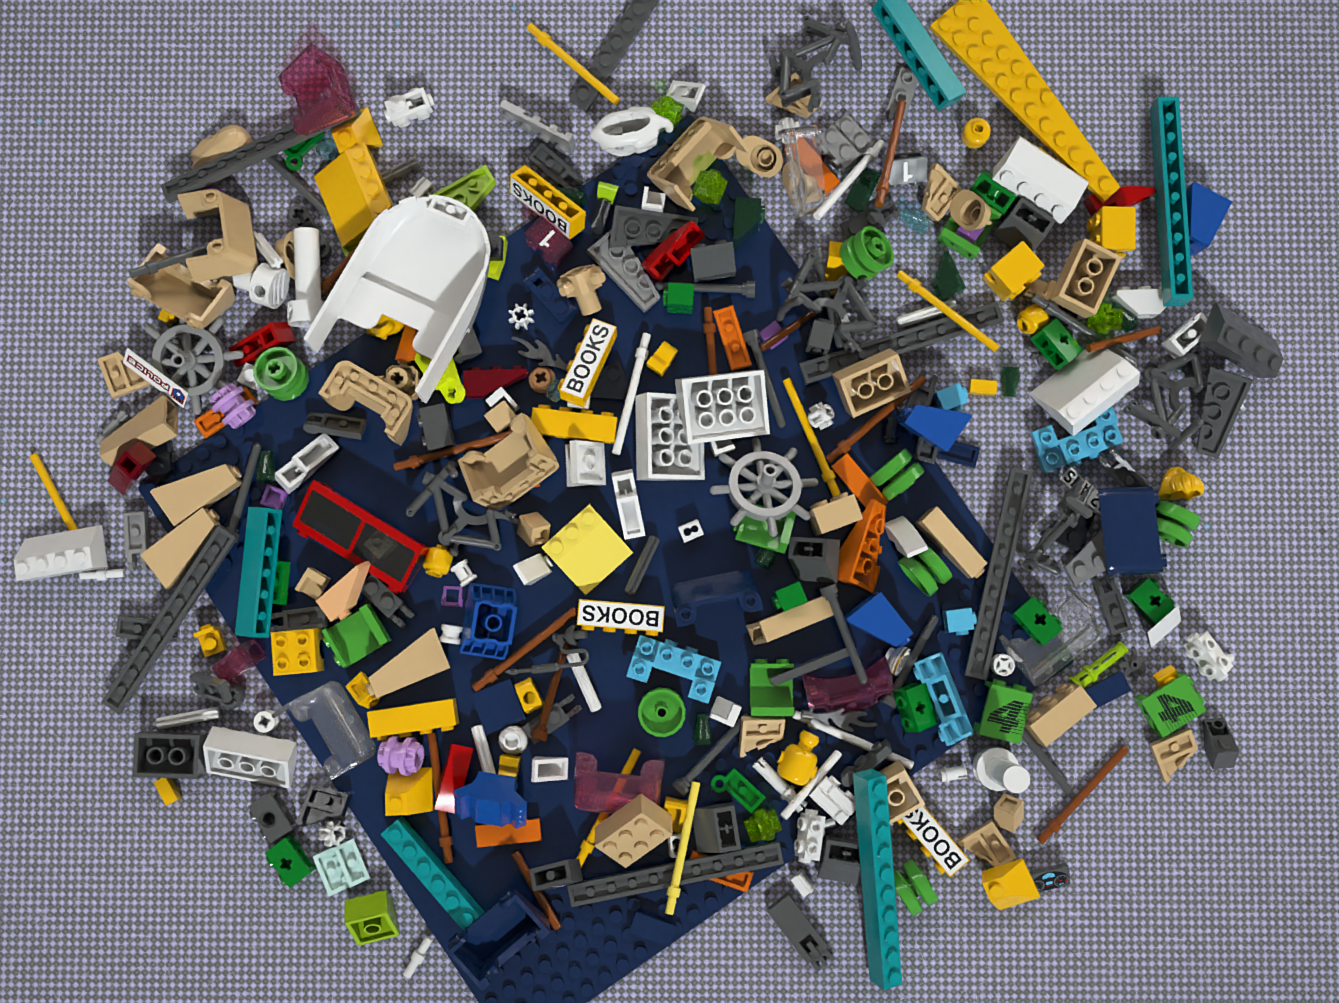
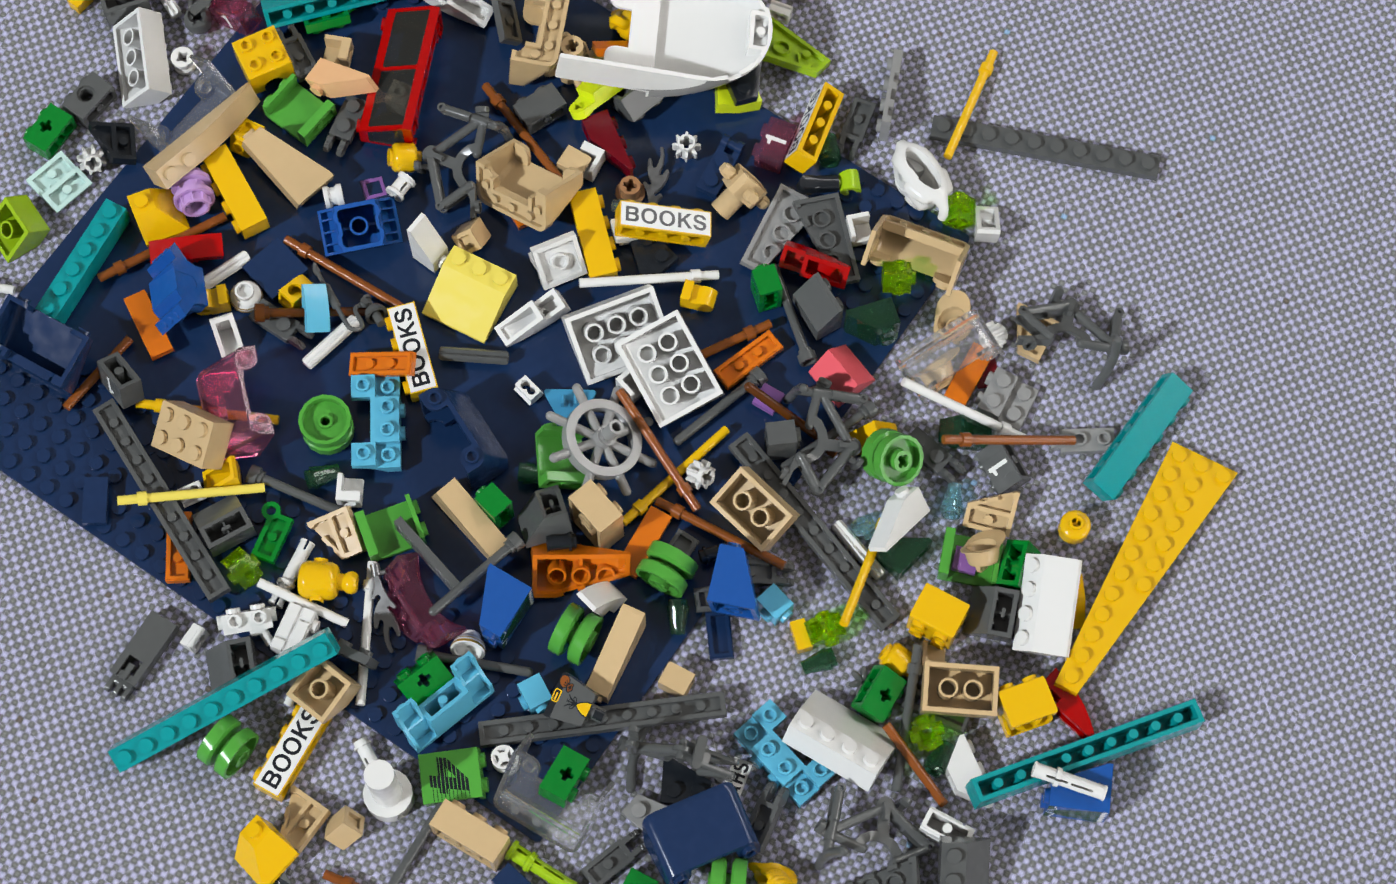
camera: 65 degrees right, 15 degrees down
(356, 732) = (201, 138): none -> tan slope
(552, 684) = (315, 307): none -> medium azure slope
(625, 645) = (383, 363): none -> orange tile
(714, 505) = (564, 400): none -> dark azure piece
(774, 266) = (842, 370): none -> coral slope
(827, 434) = (683, 488): none -> dark orange bar
(845, 552) = (561, 542): none -> black pin
(873, 453) = (684, 542): none -> dark grey tile
(910, 301) = (863, 526): none -> clear light blue tile
(919, 270) = (899, 515): none -> white slope
(934, 480) = (677, 614): none -> clear green cone
(985, 592) = (574, 702): none -> dark grey torso
(986, 501) = (676, 680): none -> tan panel
(988, 365) = (825, 629): none -> clear neon green brick
(1195, 228) = (1069, 781): none -> white pin

